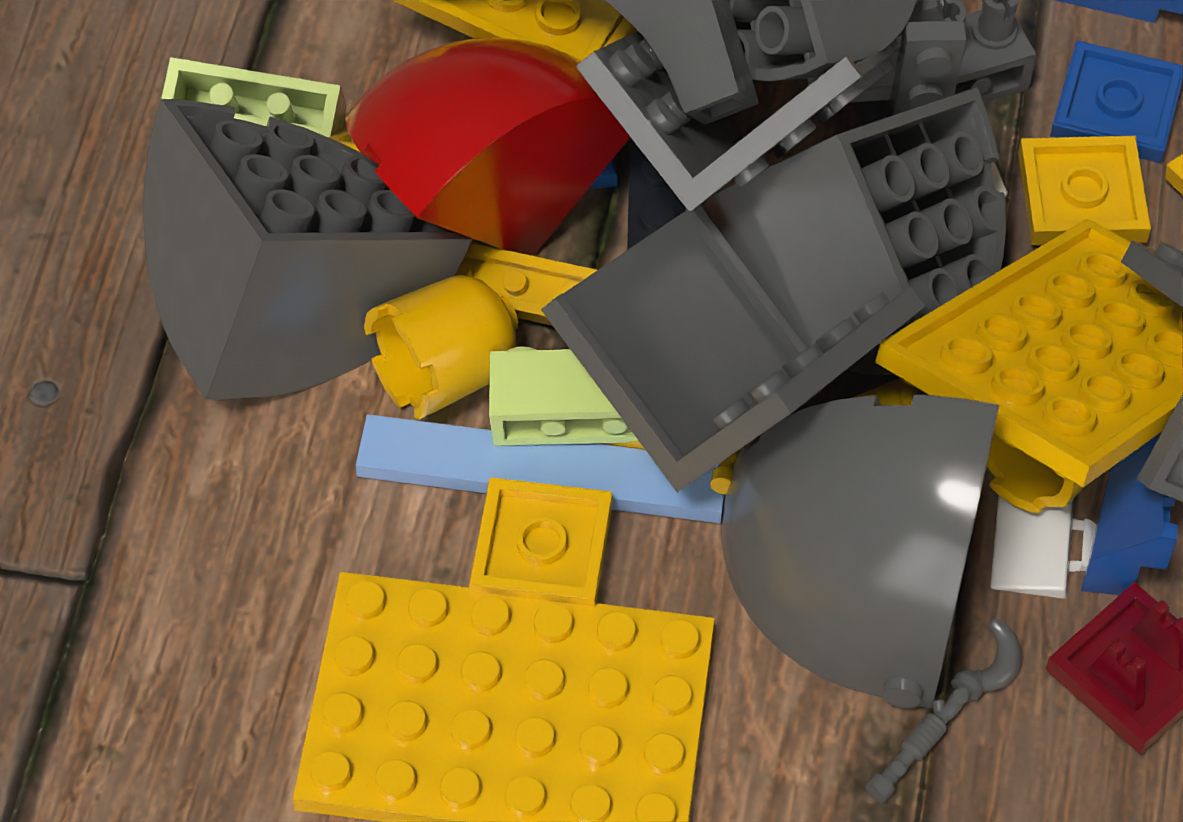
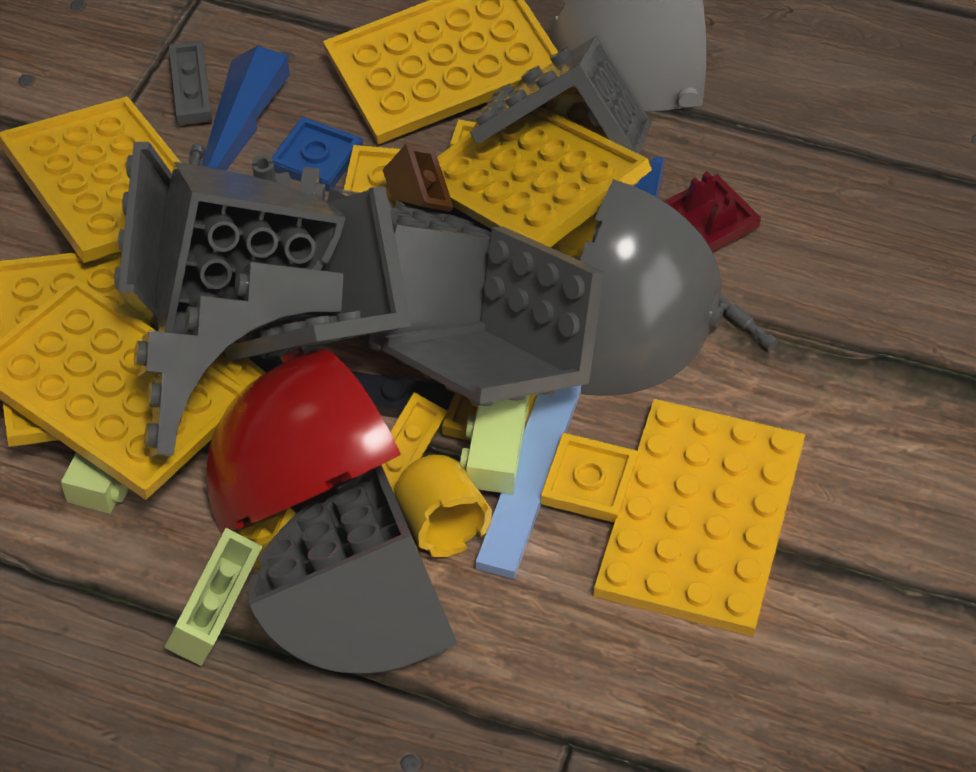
camera: 80 degrees left, 5 degrees down
(1041, 211) = (417, 178): none -> reddish brown slope

